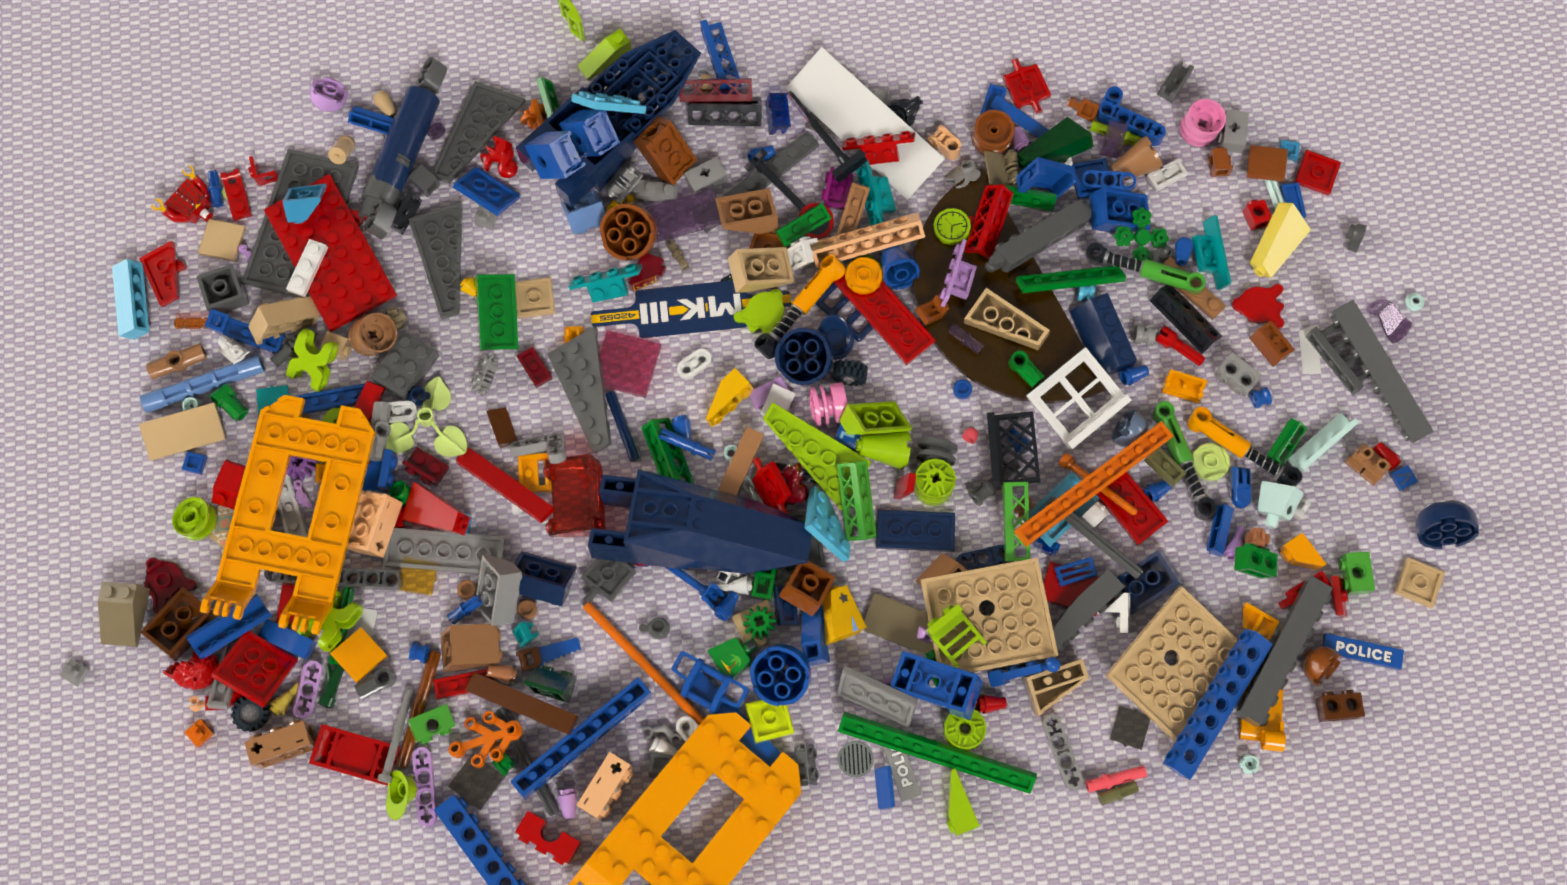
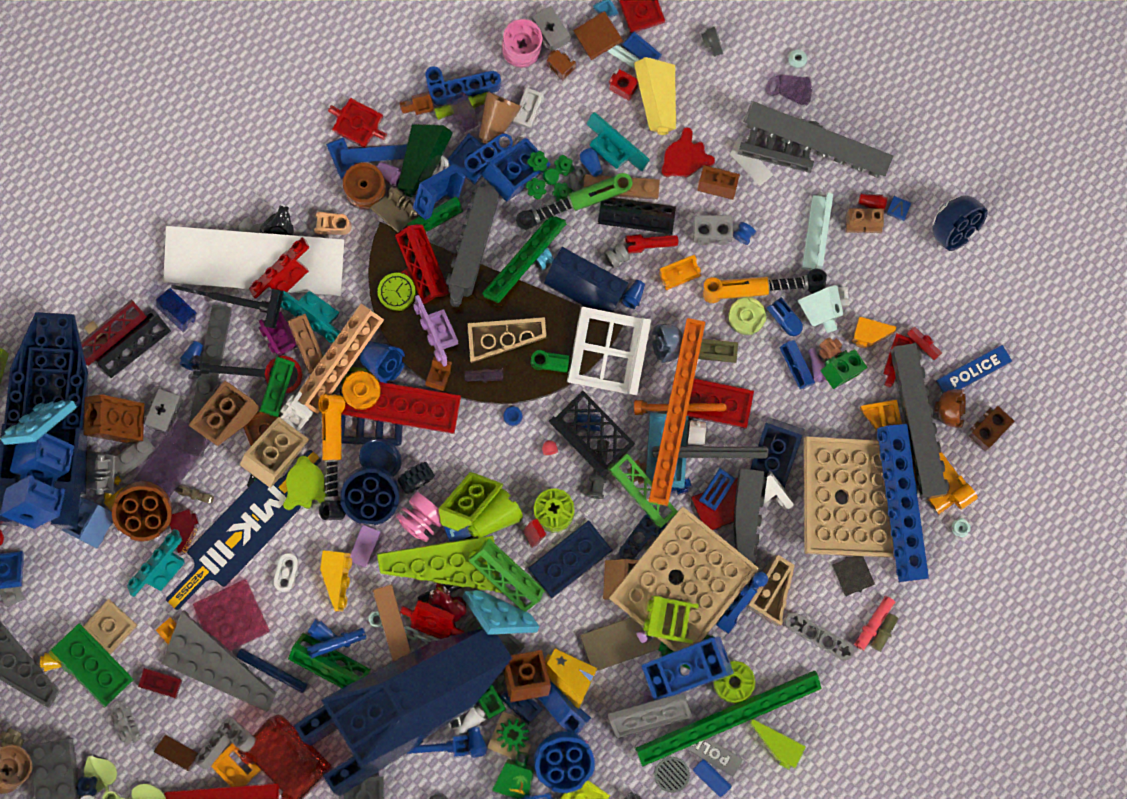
camera: 40 degrees left, 5 degrees up
(711, 43) = (80, 301): blue fence -> none
(780, 397) = (377, 543): white sticker -> none
(936, 449) = (535, 485): dark grey wheel -> none
(968, 169) = (369, 234): light grey plate -> none
(990, 703) = (737, 645): red cone -> none
(1157, 490) = (725, 374): blue cone -> none
(1175, 82) = (471, 24): dark grey hinge -> none
(1183, 457) = (725, 331): piece -> none
(1286, 442) = (791, 253): green piece -> none
(1362, 564) = (918, 303): bright green brick -> none
(1419, 582) = (973, 281): tan tile -> none

